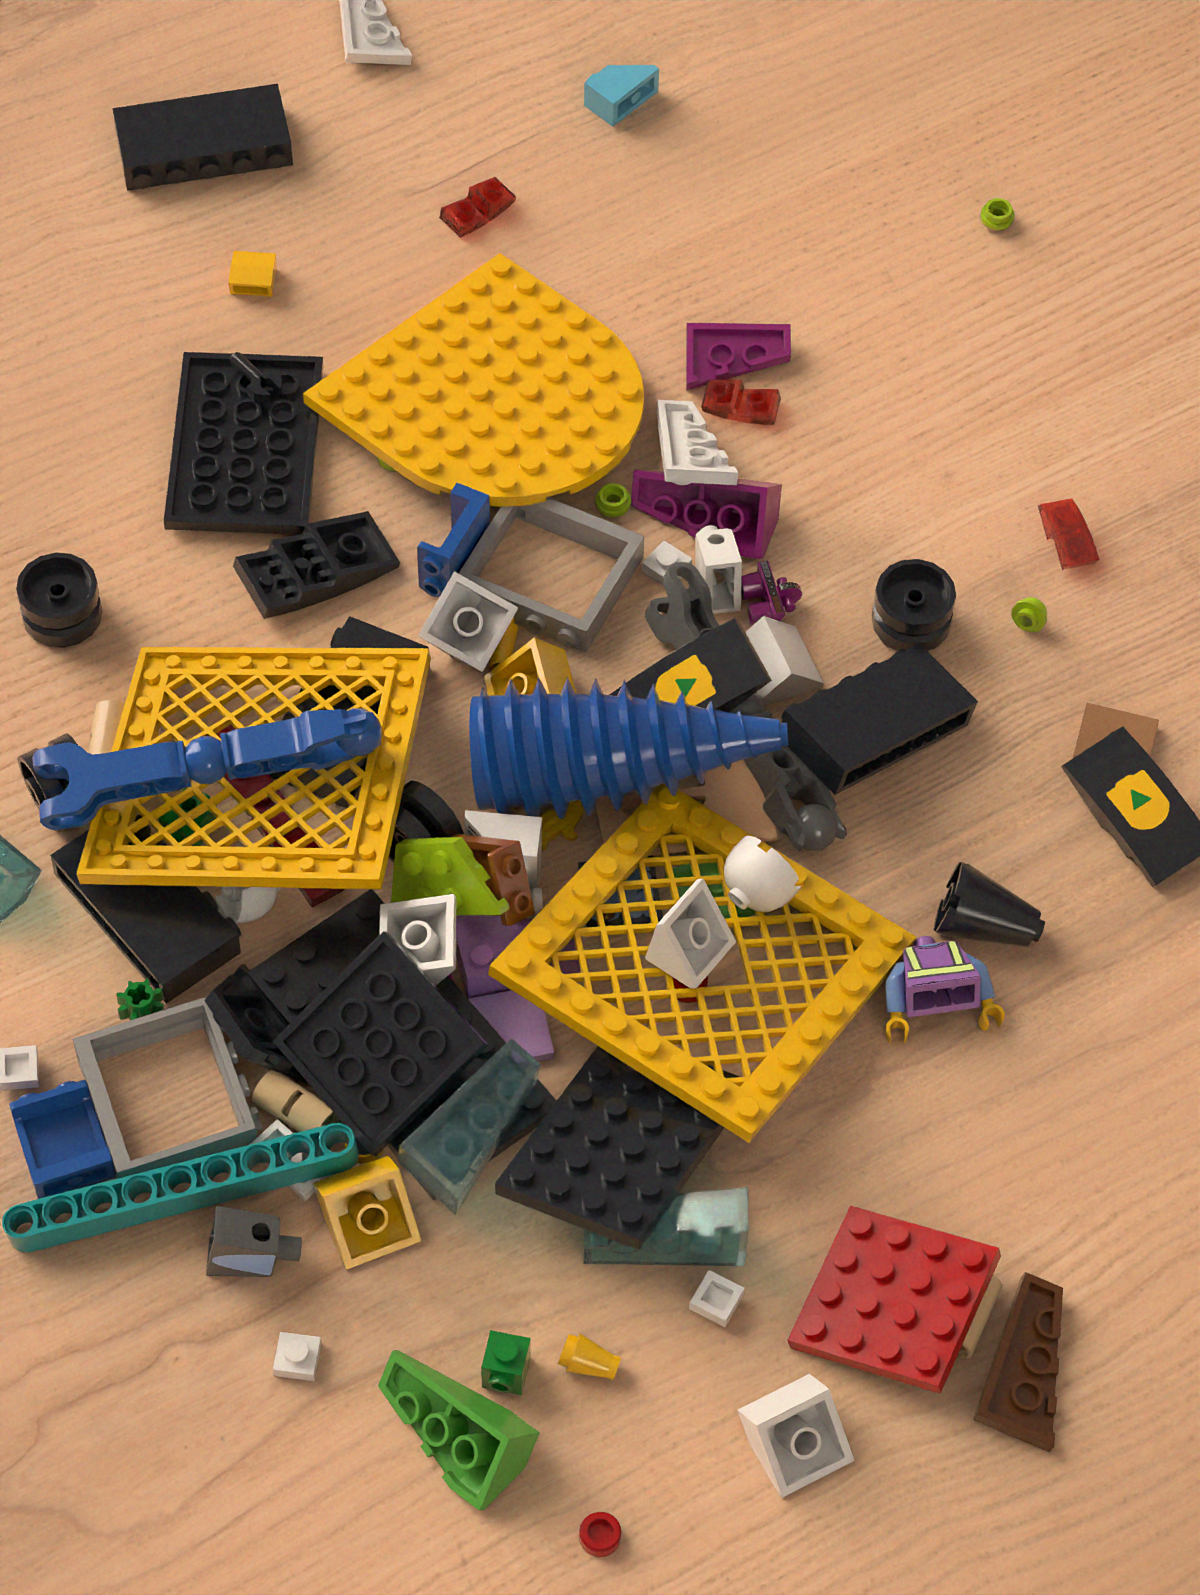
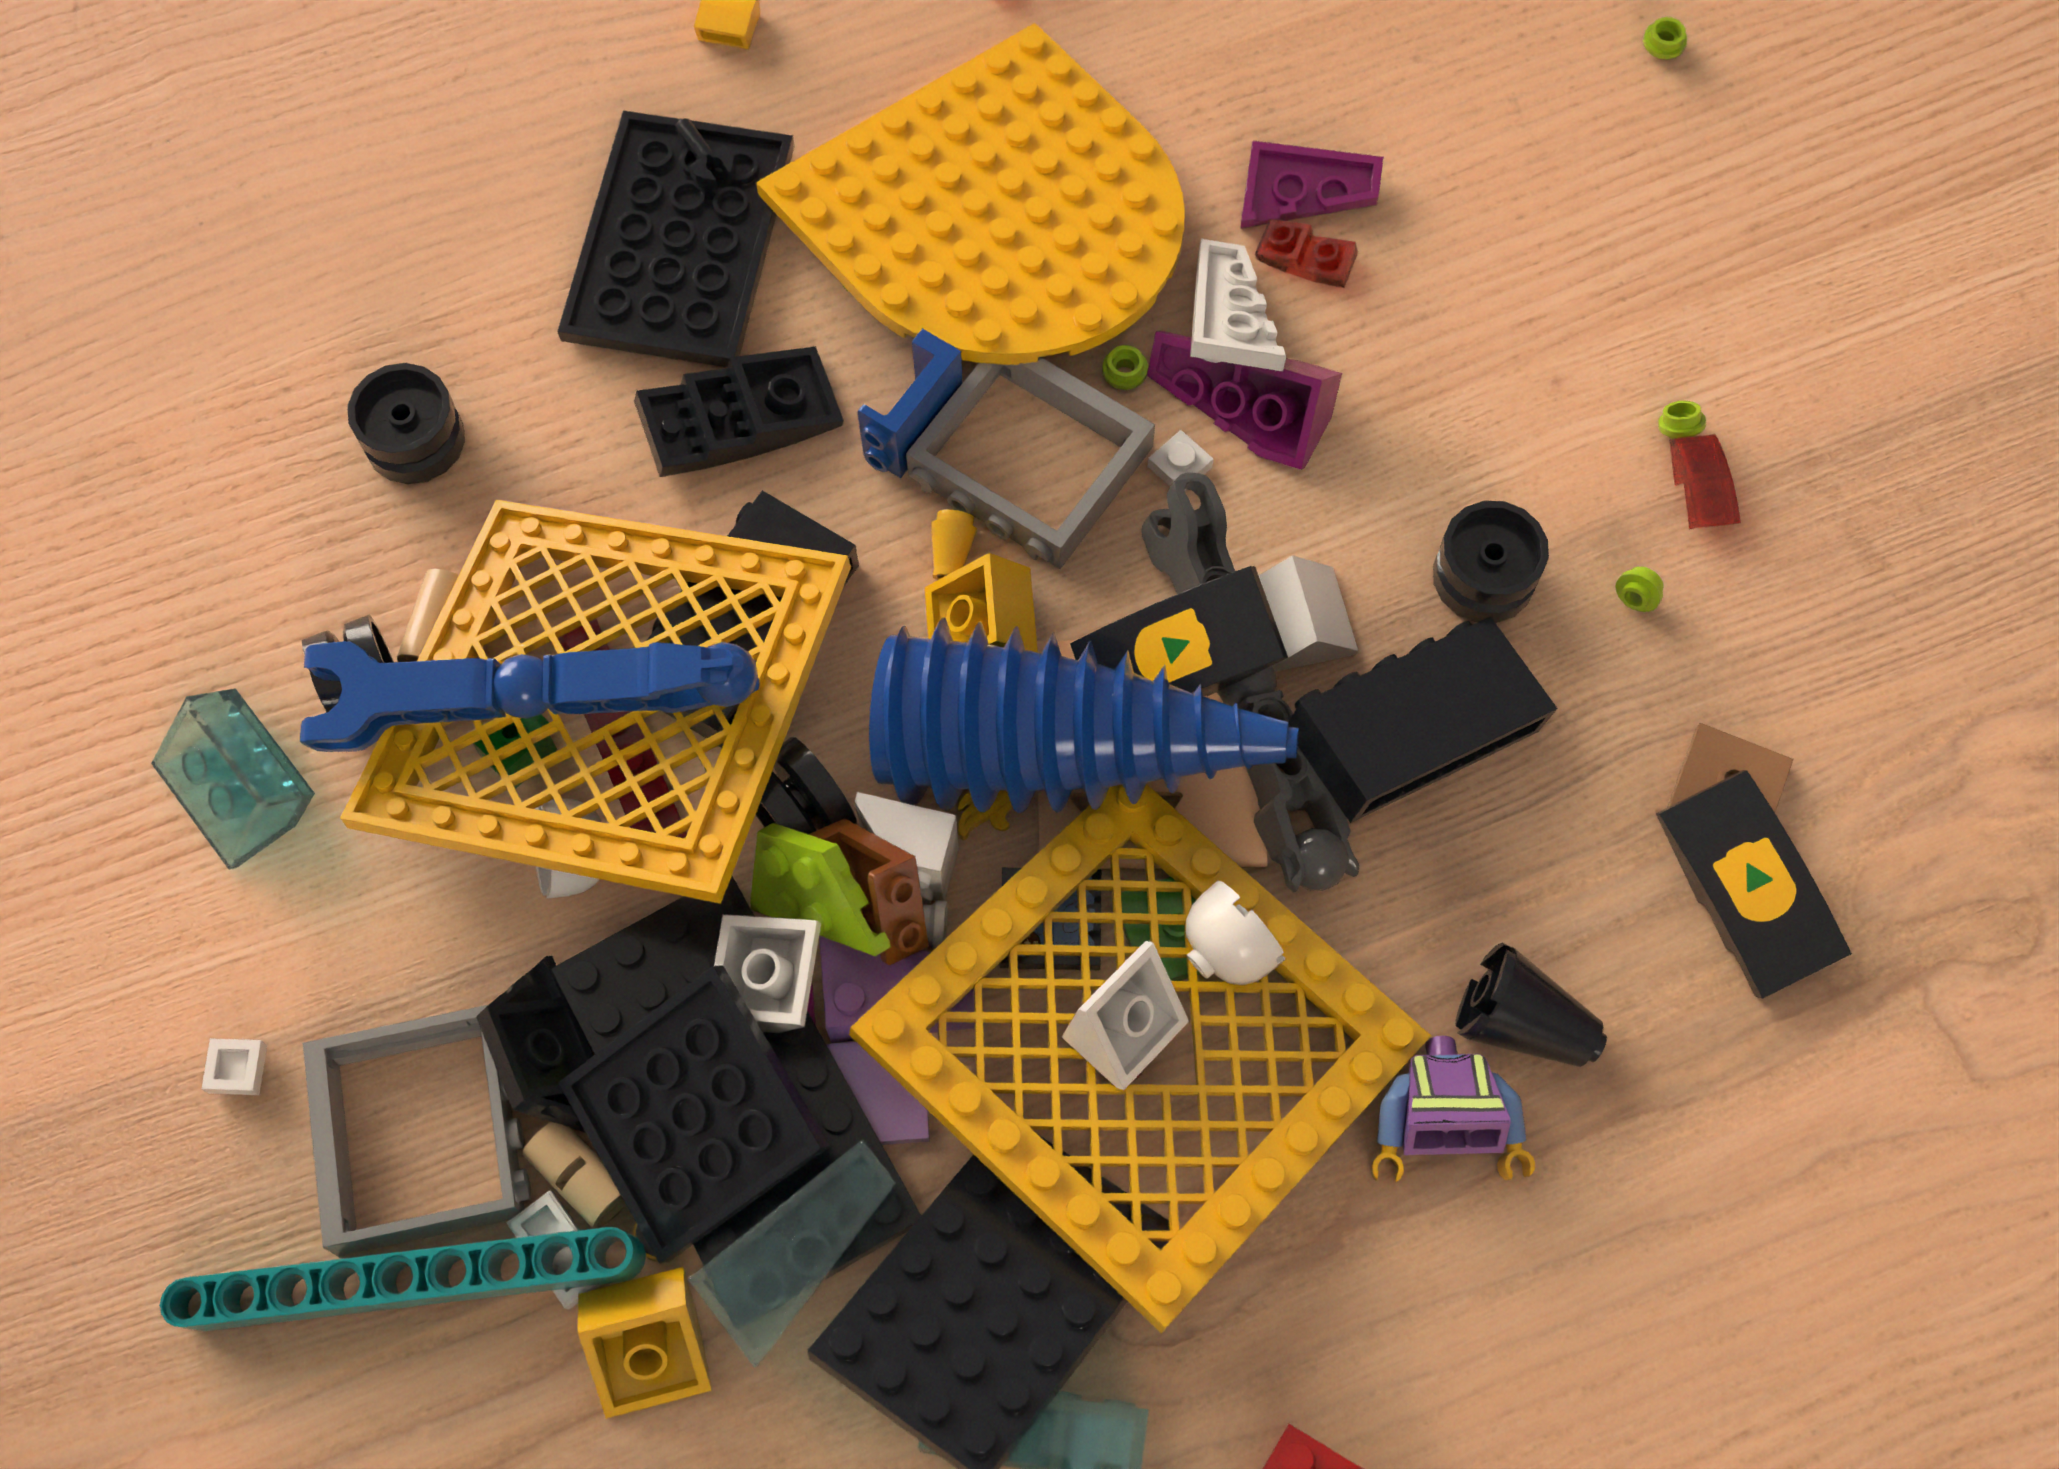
camera: 10 degrees right, 10 degrees up
(62, 1139) = (265, 1180): blue panel -> none
(139, 1000) = (405, 984): green gear -> none
(163, 930) = (455, 904): black brick -> none
(248, 1244) = (454, 1367): dark grey torso -> none
(468, 622) = (909, 518): white slope -> none
(719, 553) = (1245, 461): white torso -> none
(773, 597) = (1298, 507): magenta hips -> none
(1045, 490) = (1682, 420): none -> lime plate

